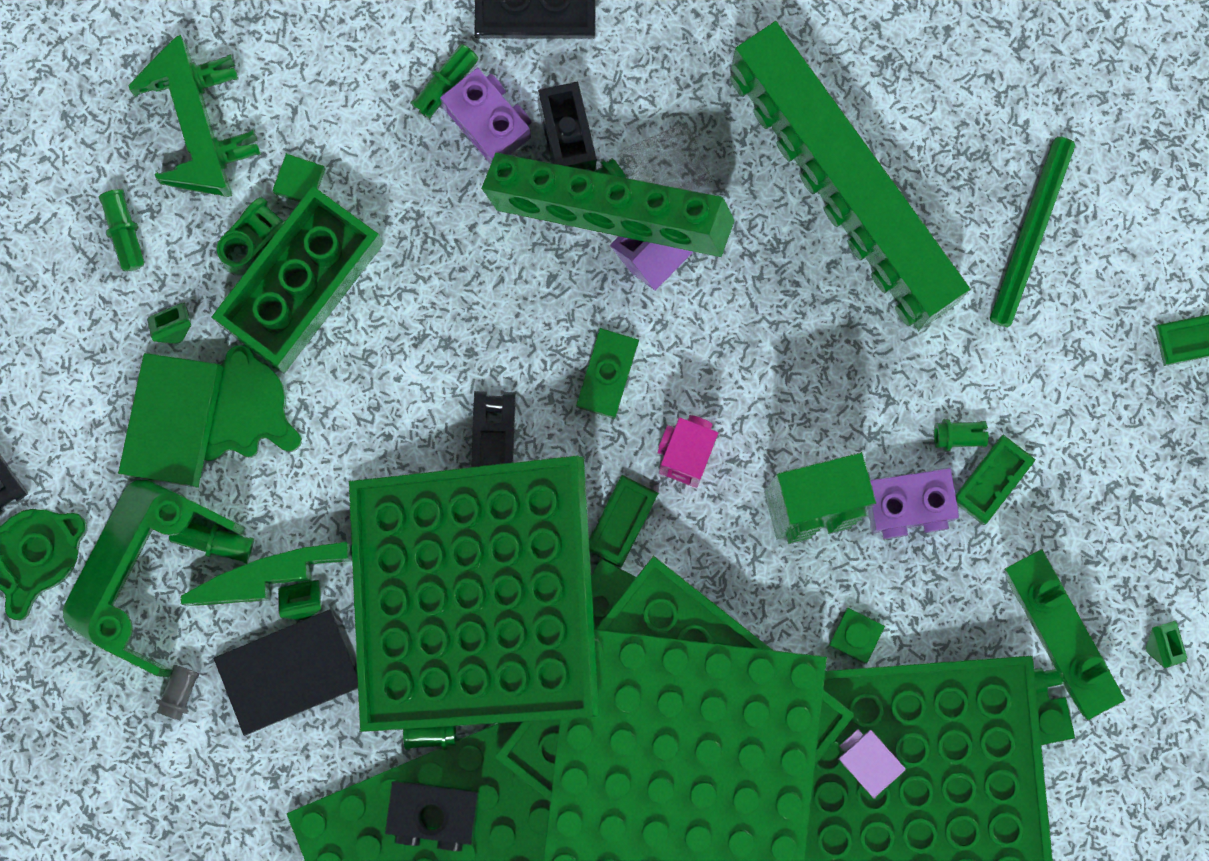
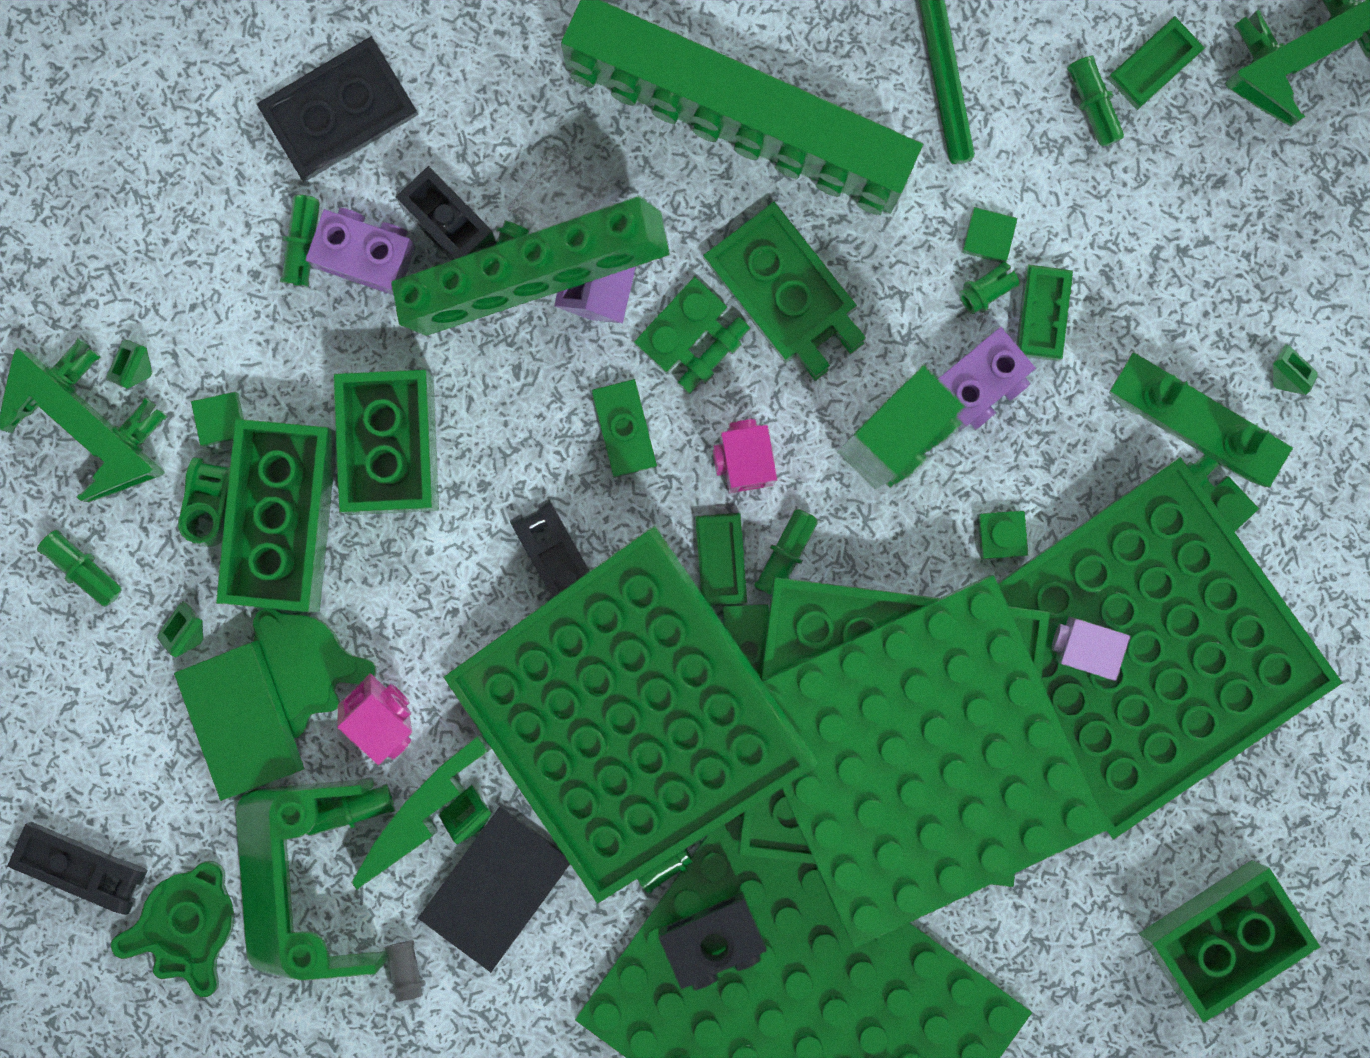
camera: 35 degrees left, 5 degrees up
(256, 98) = (130, 365): none -> green slope
(278, 481) = (376, 719): none -> dark pink brick
(416, 273) = (386, 442): none -> green brick
(680, 543) = (788, 549): none -> green axle
(699, 321) = (682, 325): none -> green plate
(799, 340) = (785, 289): none -> green tile
(986, 394) = (989, 235): none -> green tile
(1133, 338) = (1096, 101): none -> green axle

